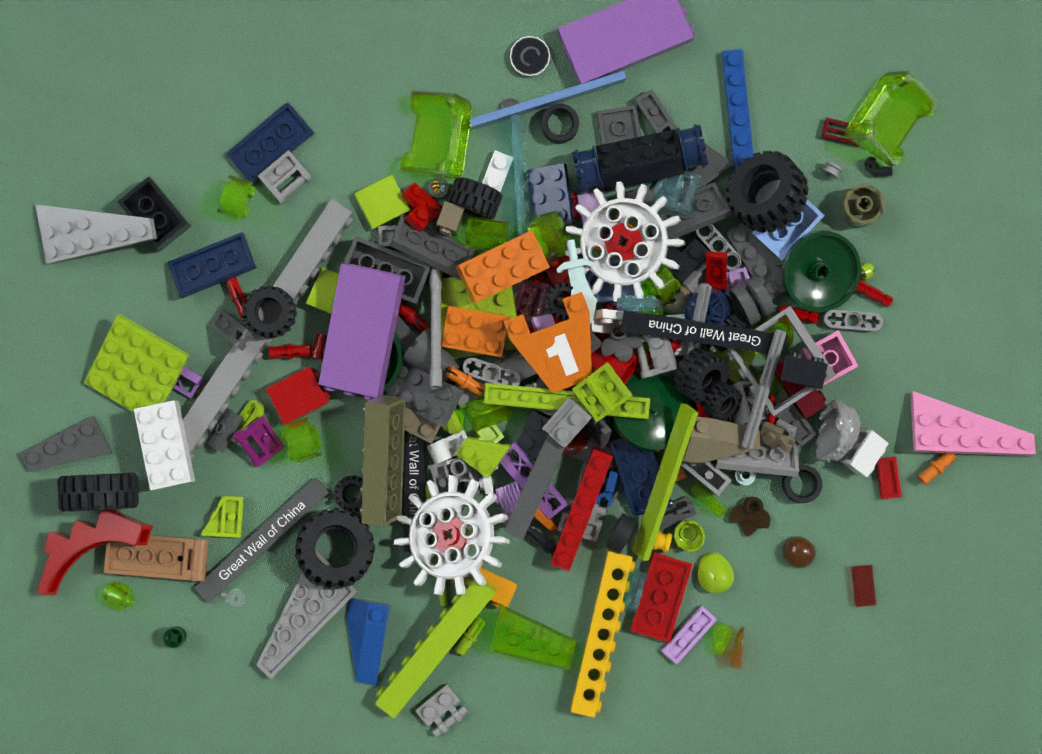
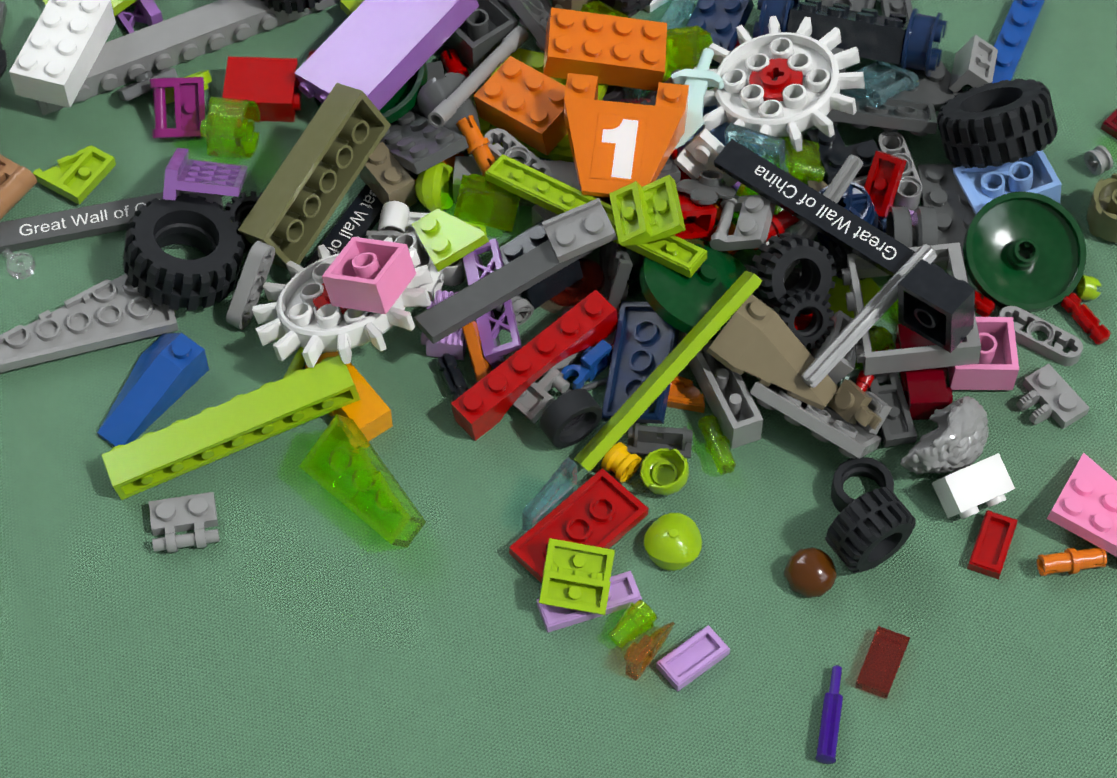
camera: 30 degrees right, 30 degrees down
(289, 351) = (269, 39): red pin -> none
(302, 504) = (201, 176): none -> medium lavender fence
(387, 548) = (250, 284): none -> light grey beam
(469, 529) = (369, 275): none -> bright pink brick
(470, 636) = (285, 449): lime axle -> none
(579, 703) = (424, 559): yellow brick -> none
(678, 631) = (576, 576): none -> lime slope
(726, 140) = (973, 64): none -> light grey hinge
(738, 475) = (783, 449): light aqua plate -> none
(750, 519) = (763, 499): dark brown plate -> none
(762, 638) = (692, 658): none -> lavender tile
(824, 518) = (870, 530): none -> black tyre
(852, 635) = (830, 720): none -> dark purple axle
(879, 358) = (1055, 397): none -> light grey hinge

